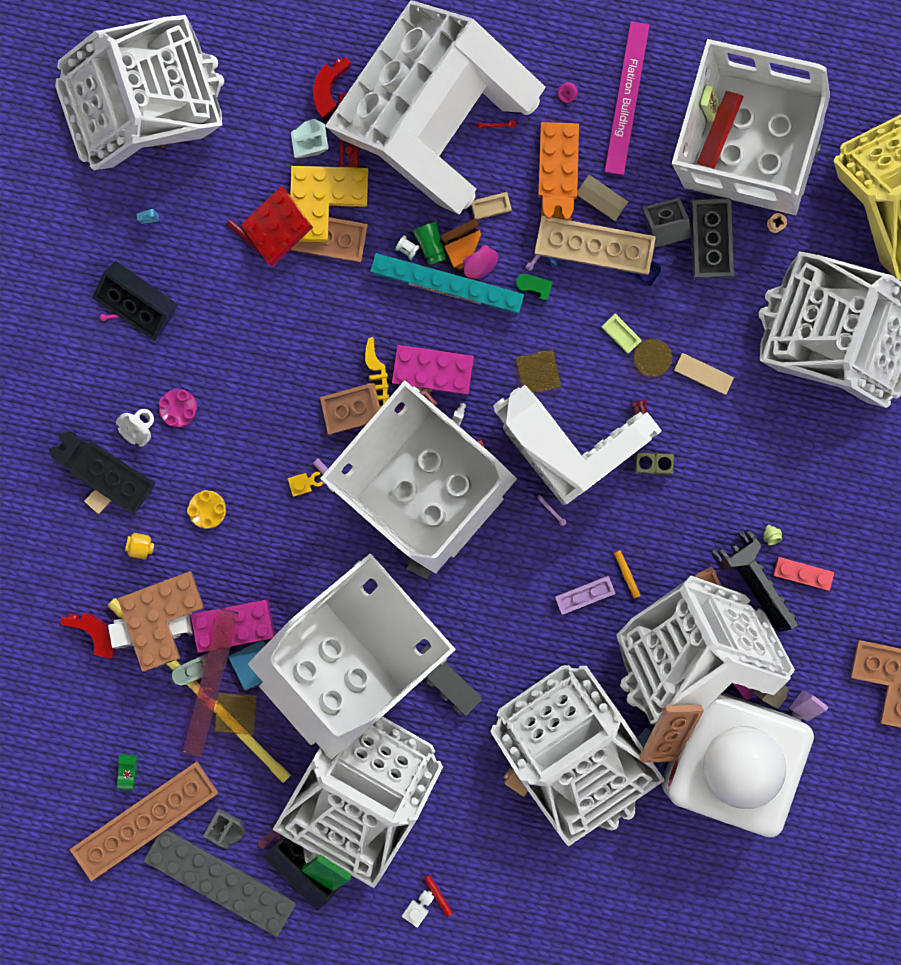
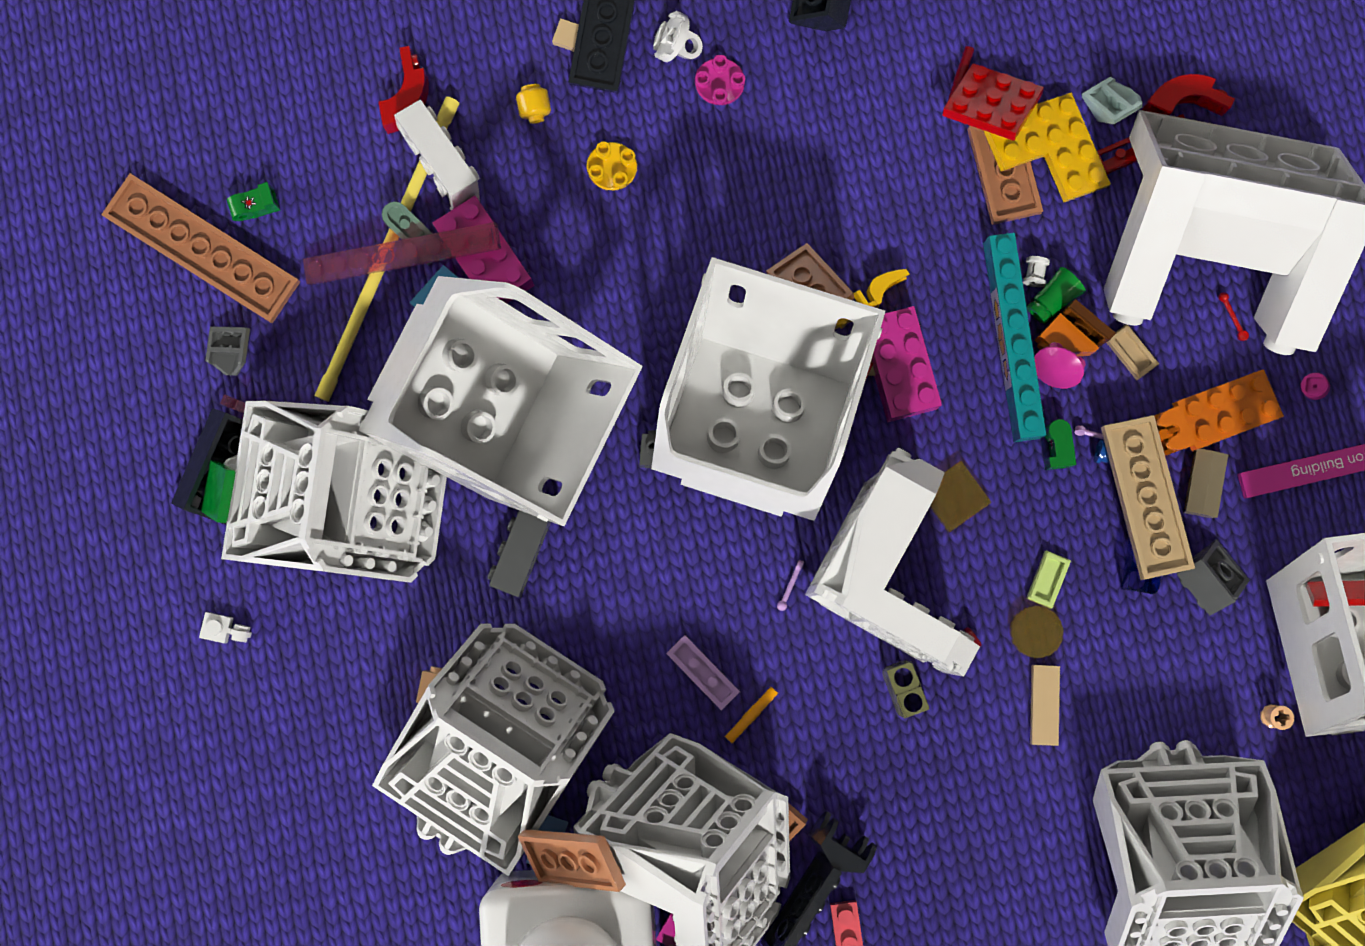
camera: 70 degrees right, 5 degrees down
(149, 613) = (448, 141): nougat plate -> none
(220, 881) = (162, 372): dark grey plate -> none
(235, 713) = (375, 301): clear yellow tile -> none
(302, 484) = (691, 266): yellow plate -> none
(438, 896) = (249, 647): red piece -> none
(459, 414) = (861, 420): white piece -> none
(711, 239) = (1220, 642): dark grey brick -> none
(772, 535) = (880, 881): yellowish green plate -> none

